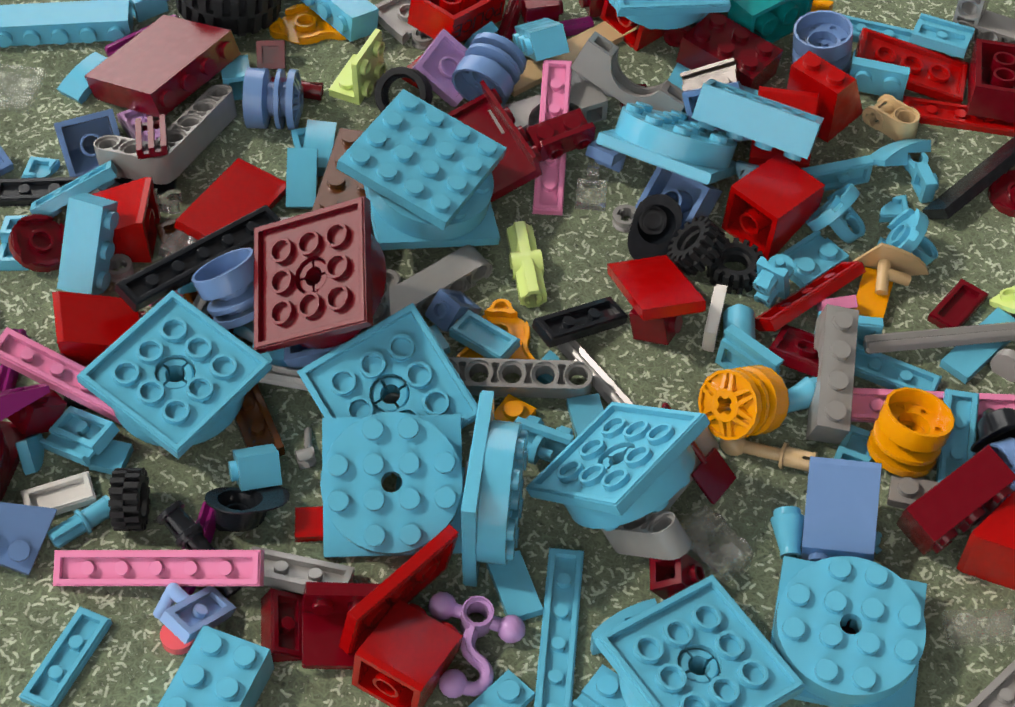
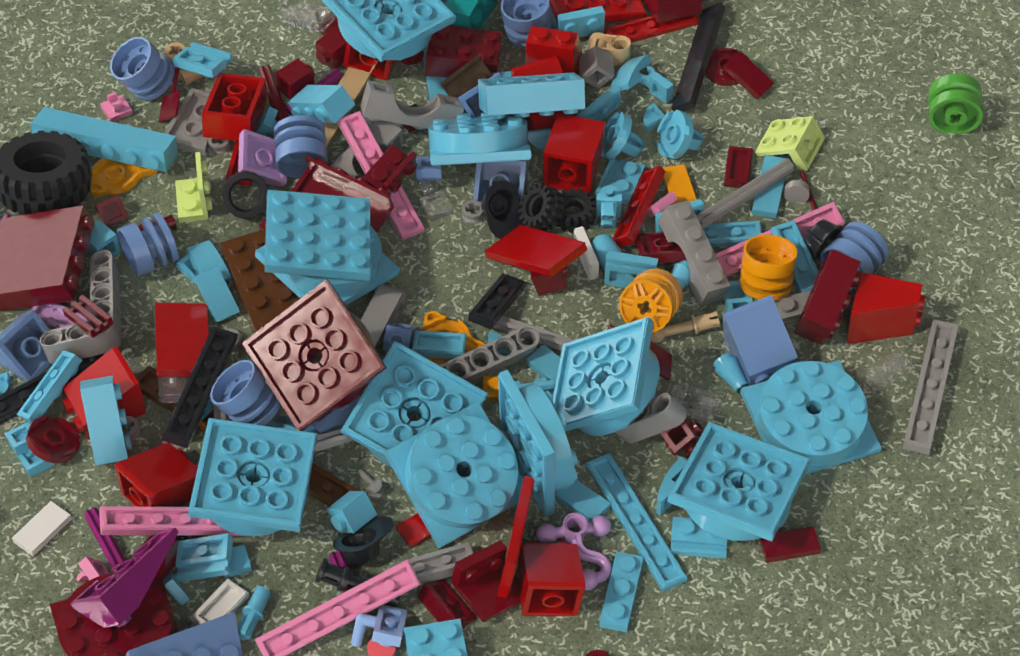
camera: 30 degrees left, 0 degrees up
(129, 499) = (281, 578): black tyre -> none
(526, 264) = (428, 278): yellowish green piece -> none
(865, 129) = (596, 67): none -> light grey brick
(892, 265) = (682, 158): tan shield -> none

